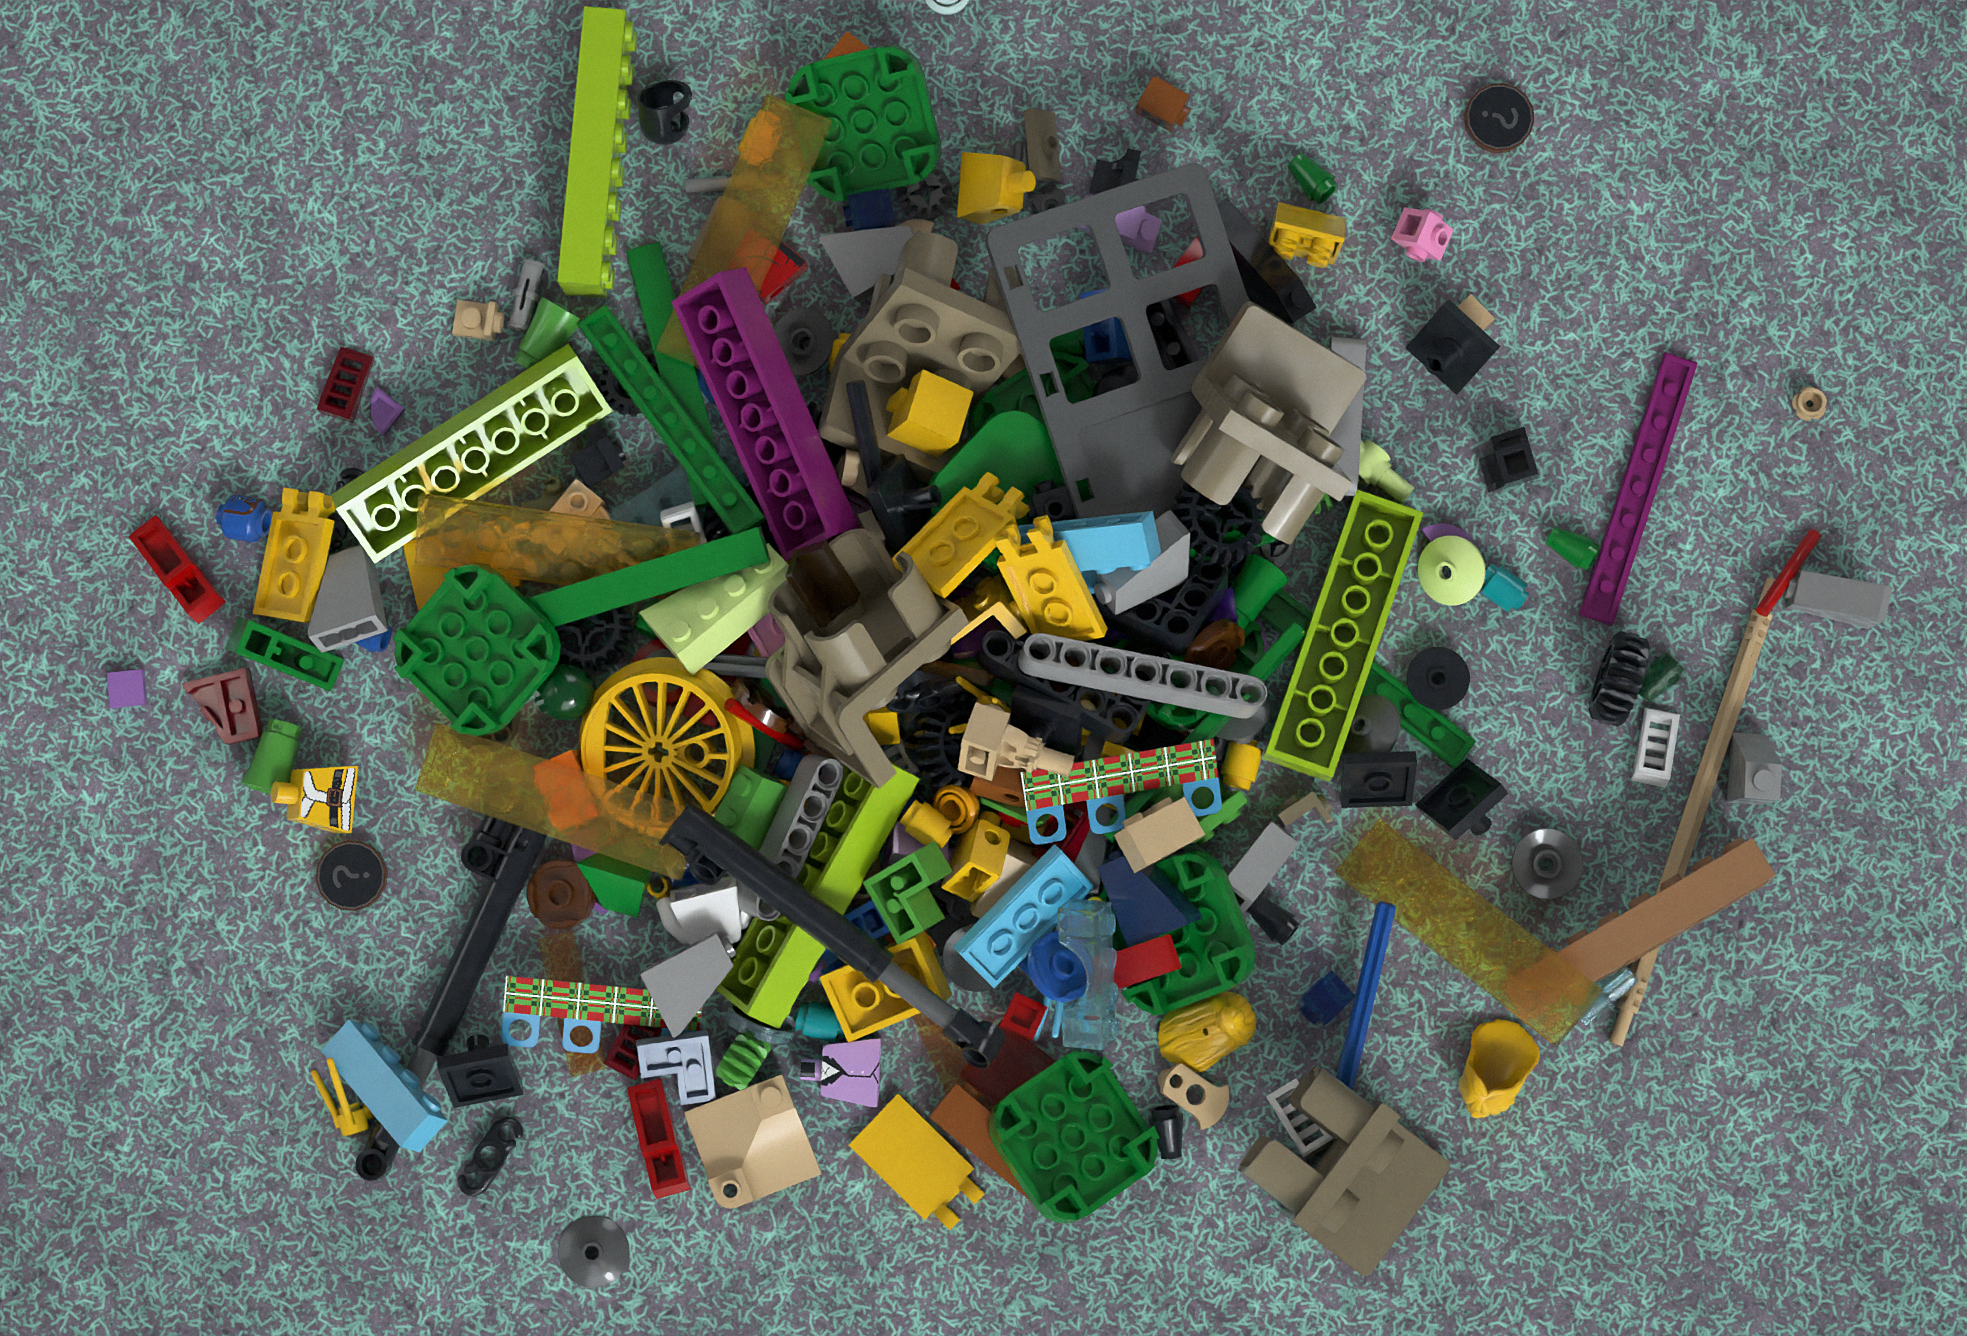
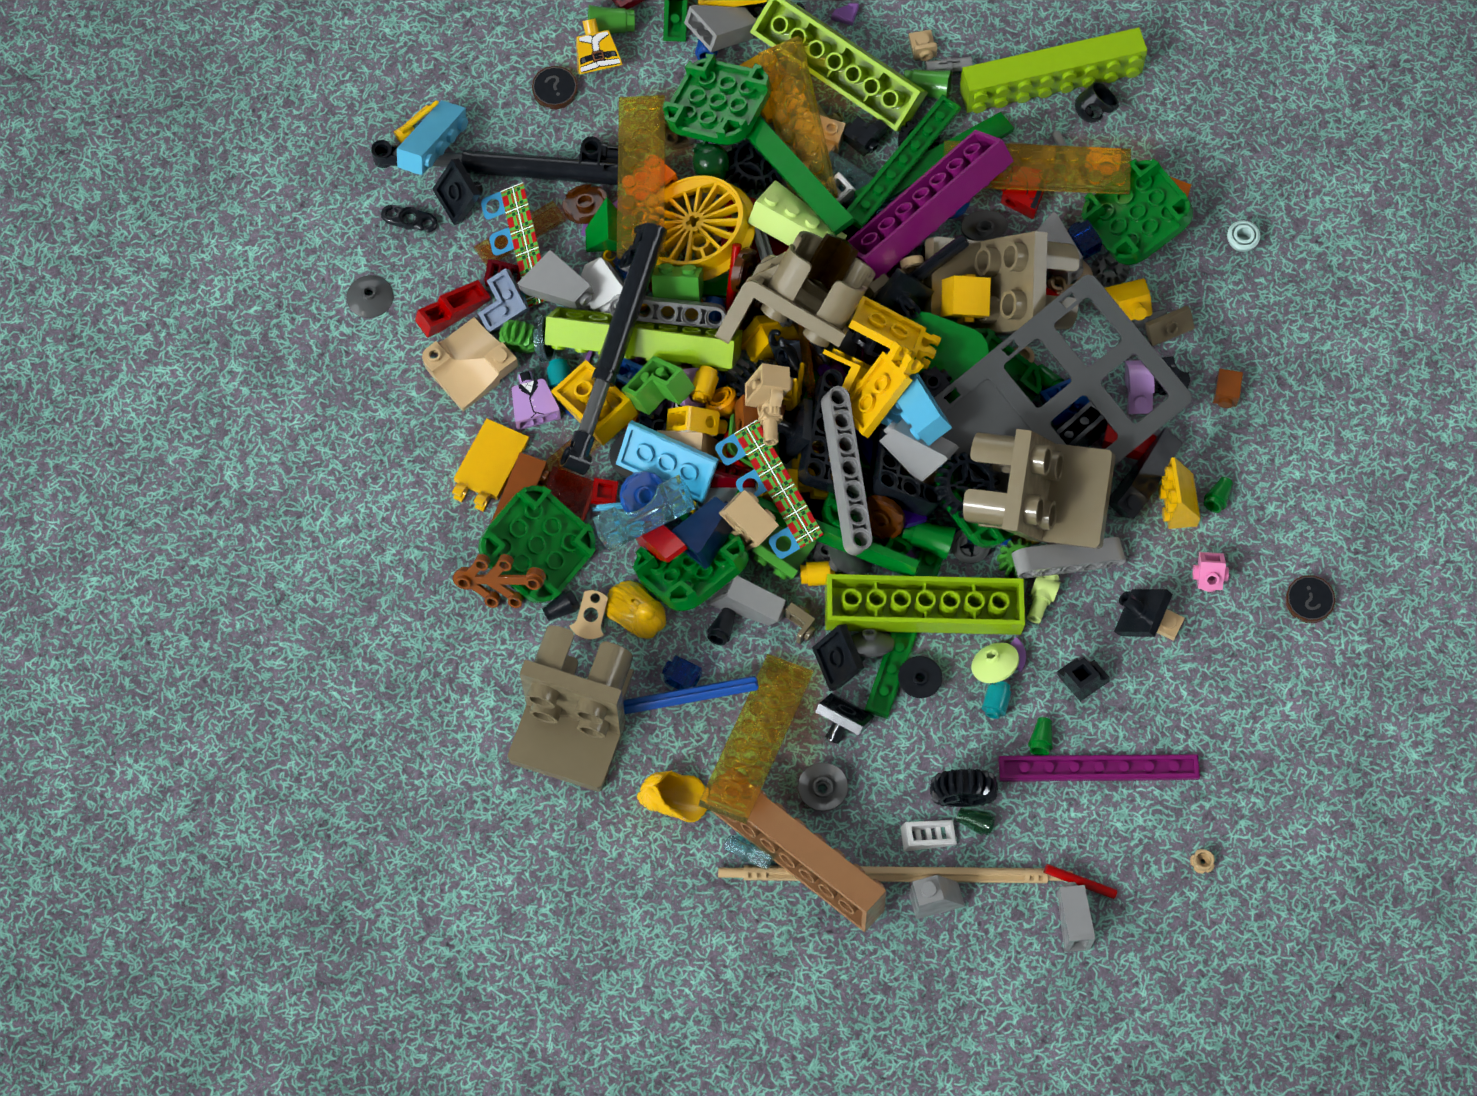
camera: 70 degrees right, 15 degrees down
(1111, 1208) = (467, 578): none -> dark orange plant

